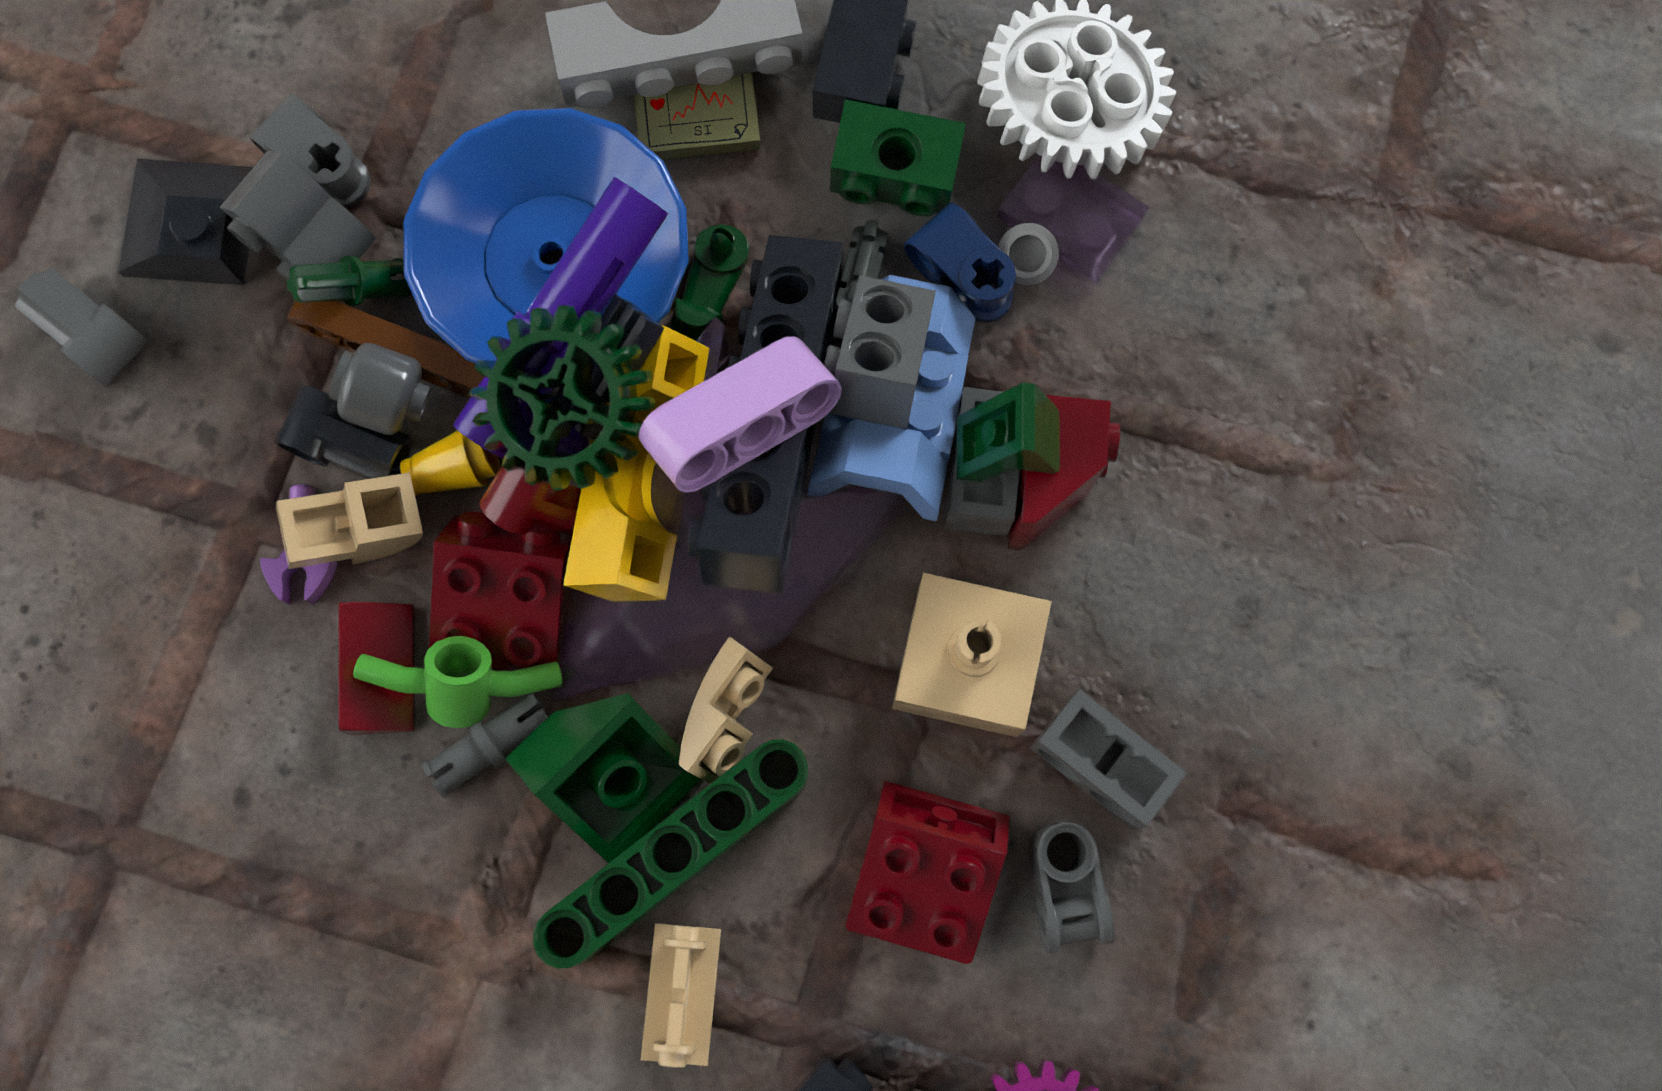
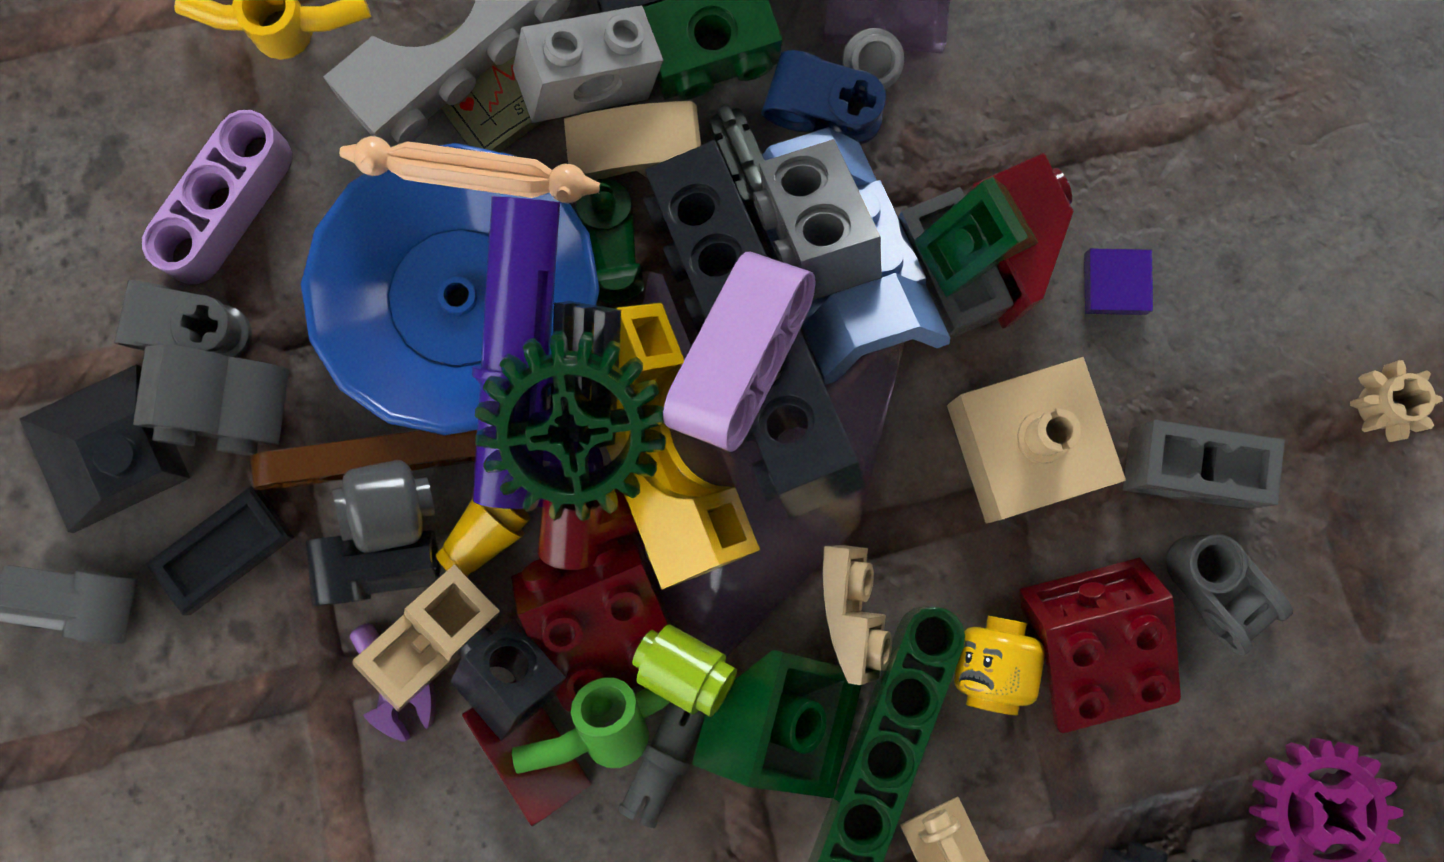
camera: 35 degrees left, 5 degrees up
(229, 357) = (219, 551): none -> black tile
(347, 281) = (290, 423): dark green axle -> none
(375, 63) = (216, 167): none -> lavender beam
(383, 615) = (500, 703): none -> black brick
(543, 669) = (683, 670): none -> lime brick
(619, 152) = (469, 169): none -> light nougat wheel
(773, 121) = (586, 63): none -> light grey brick
(775, 204) = (630, 137): none -> tan slope
(822, 831) = (1000, 666): none -> yellow head
(1134, 564) = (1118, 281): none -> dark purple tile
(1340, 803) = (1414, 397): none -> tan gear

